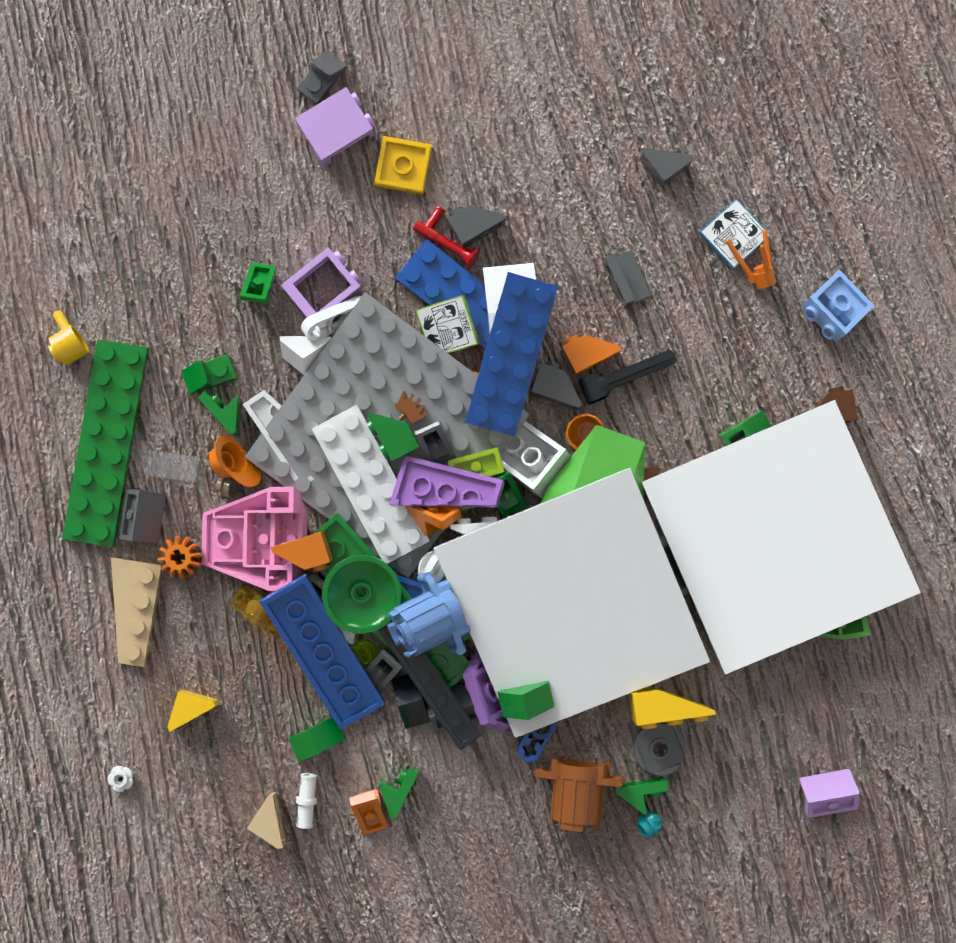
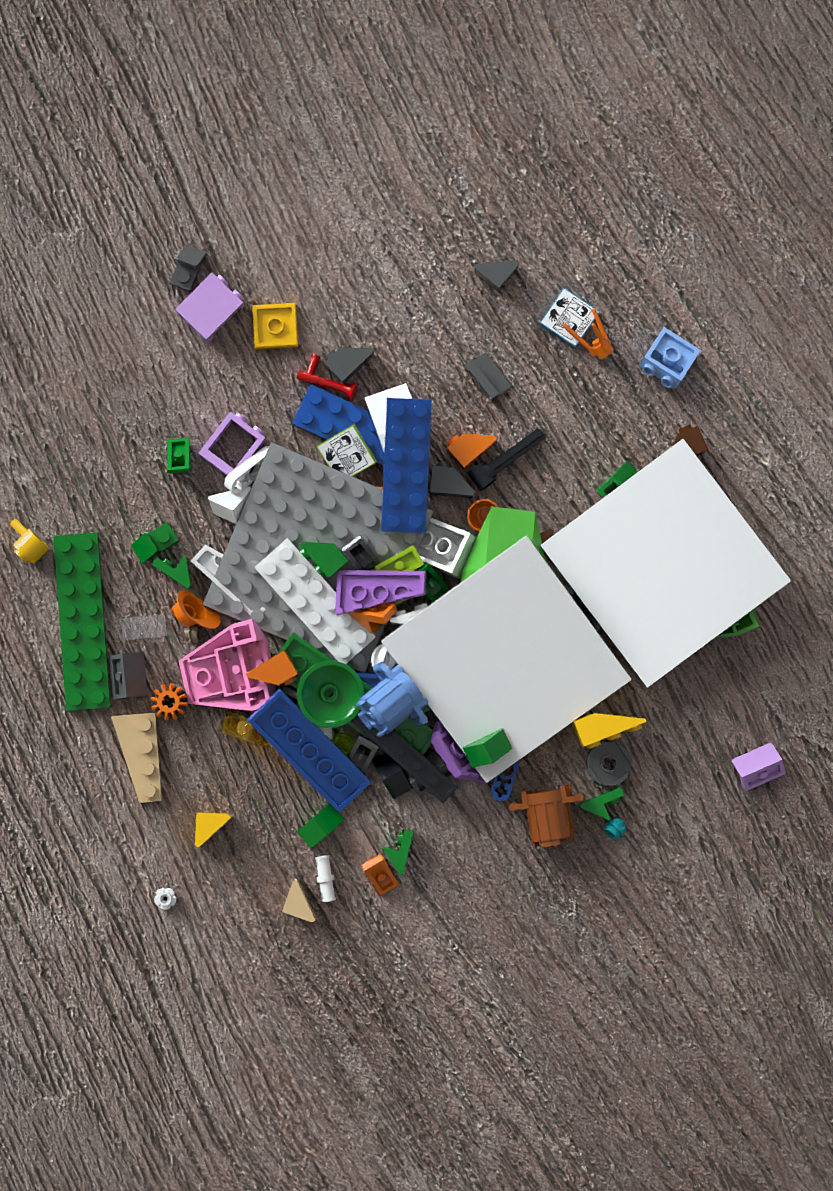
camera: 15 degrees left, 0 degrees up
(409, 409) = (332, 531): dark orange piece -> none

